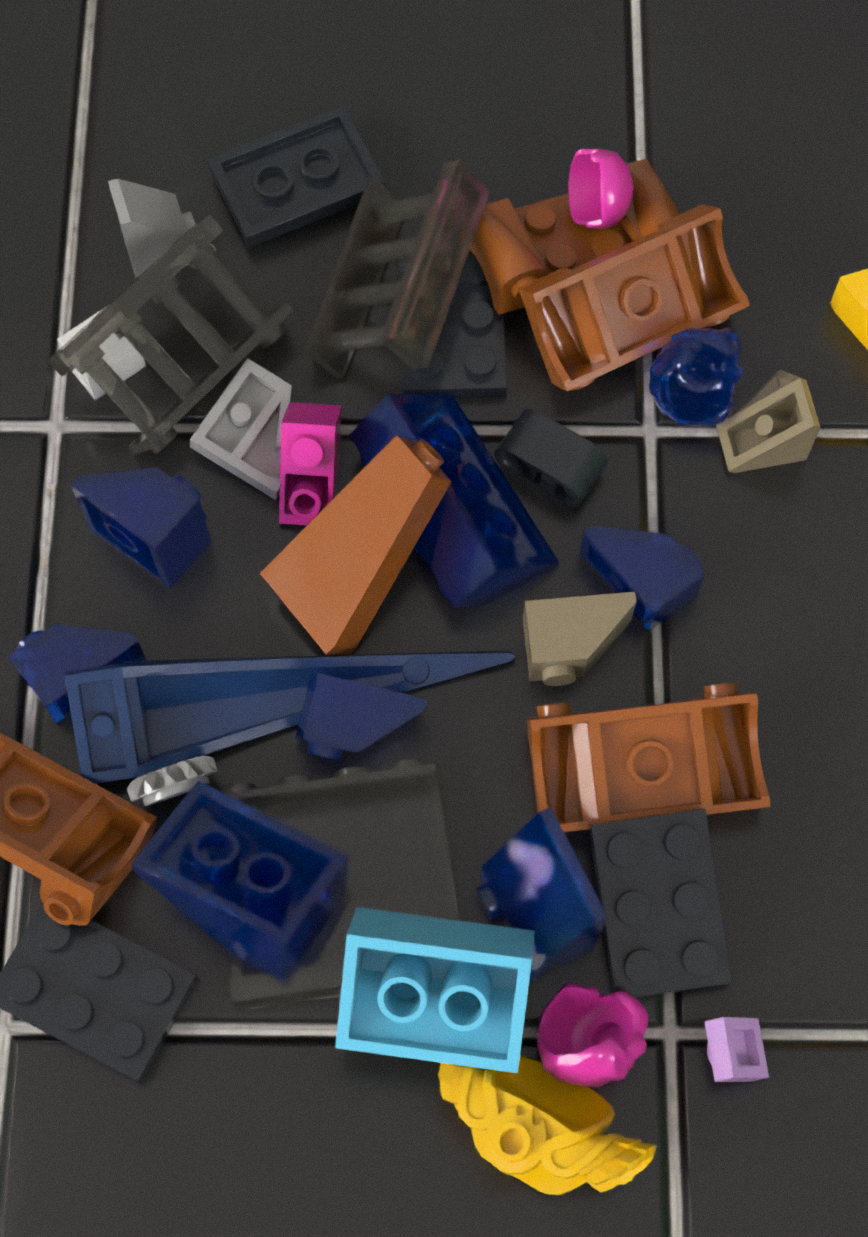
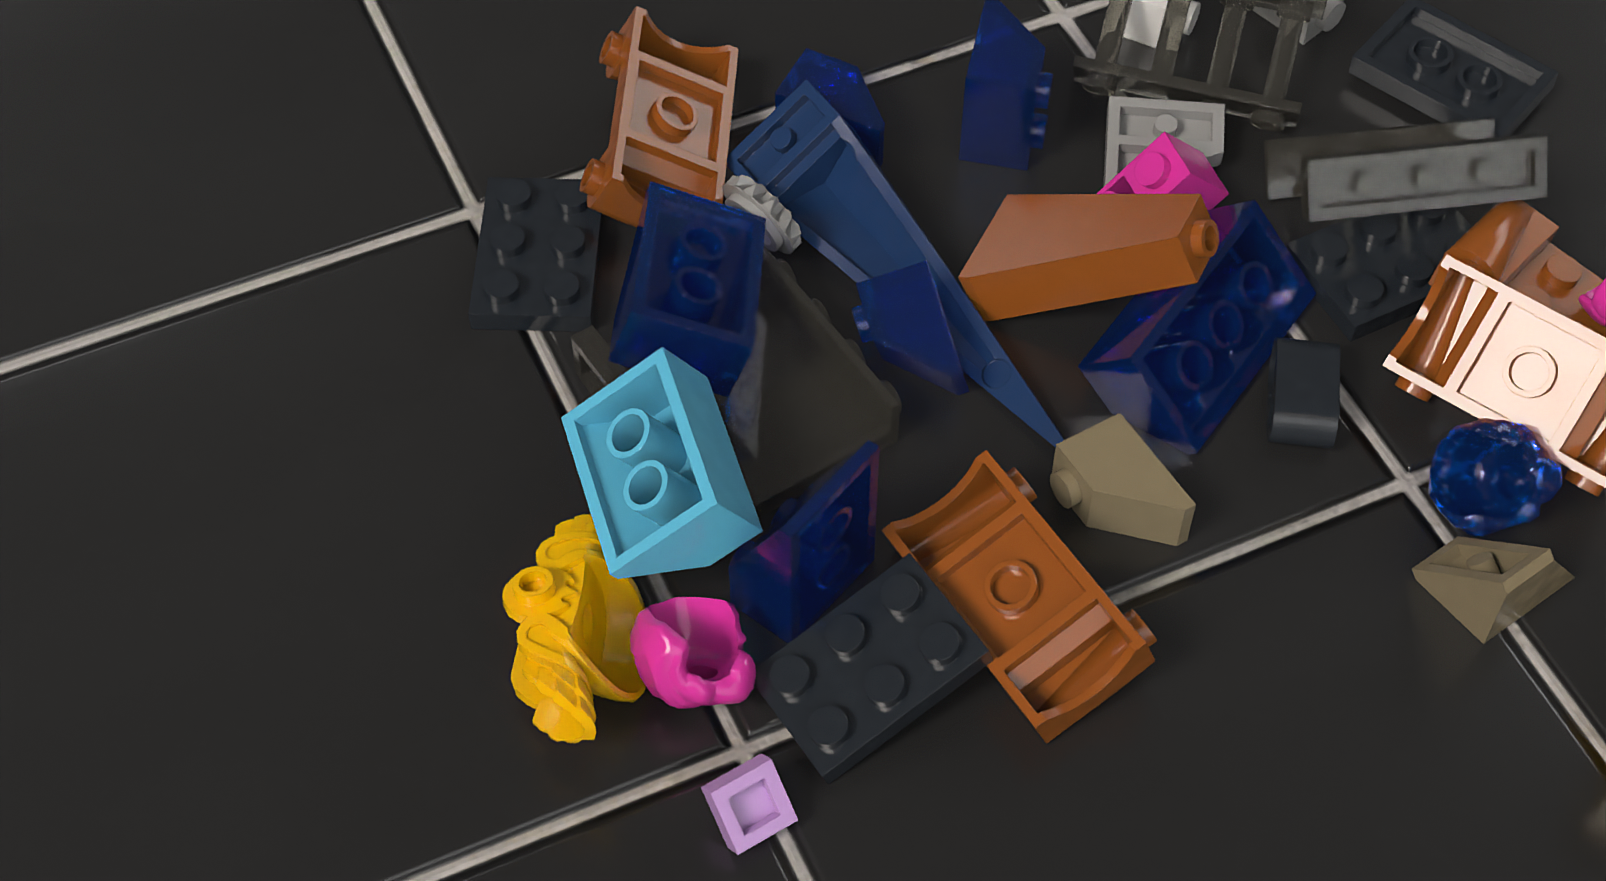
camera: 65 degrees right, 15 degrees down
(647, 564) = (1233, 524): clear blue slope -> none

